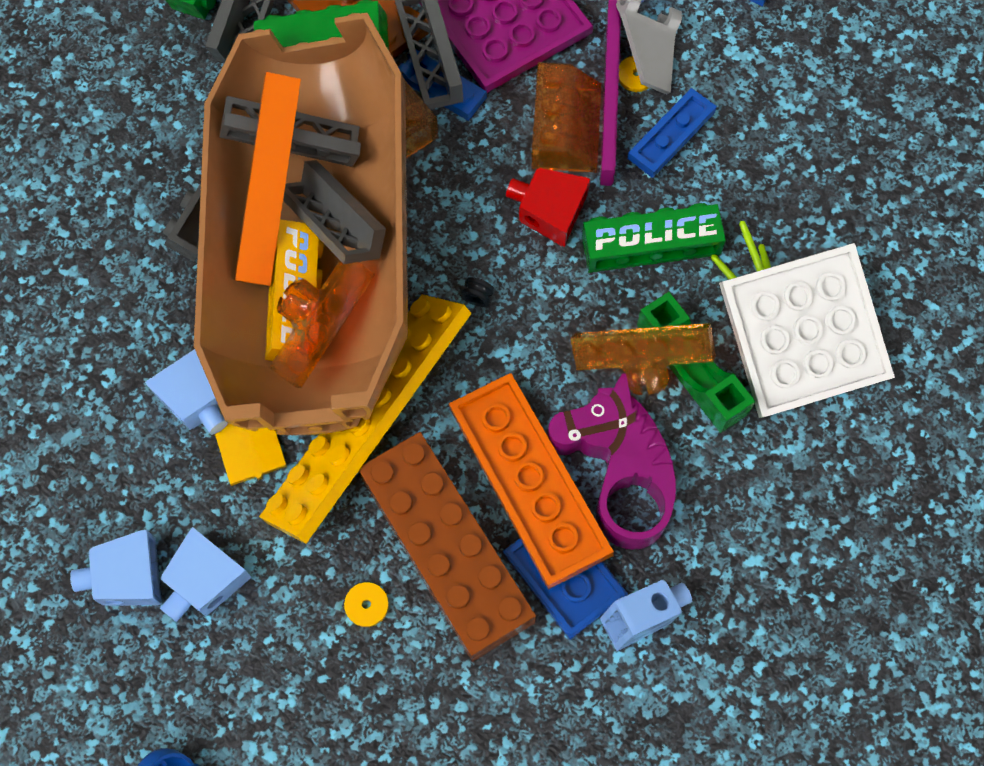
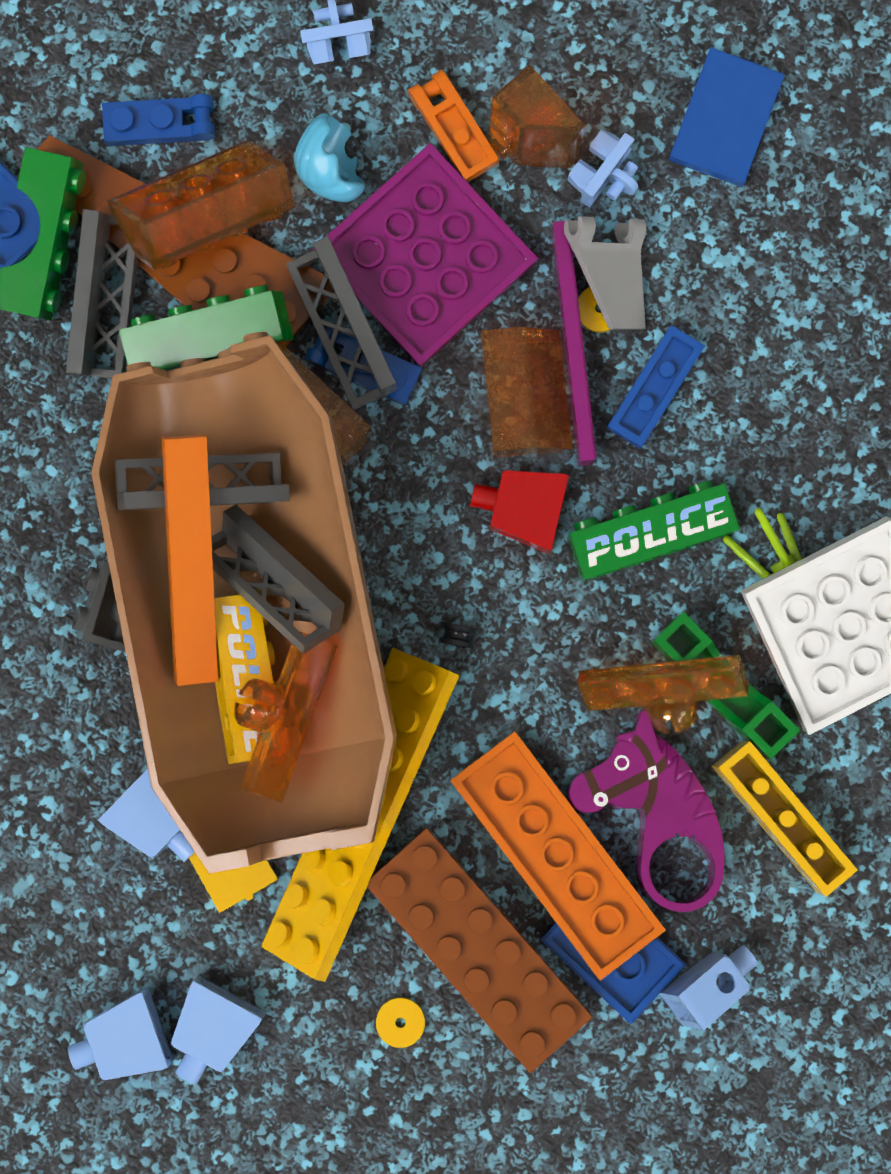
camera: 10 degrees left, 15 degrees up
(732, 478) = (784, 818): none -> yellow brick

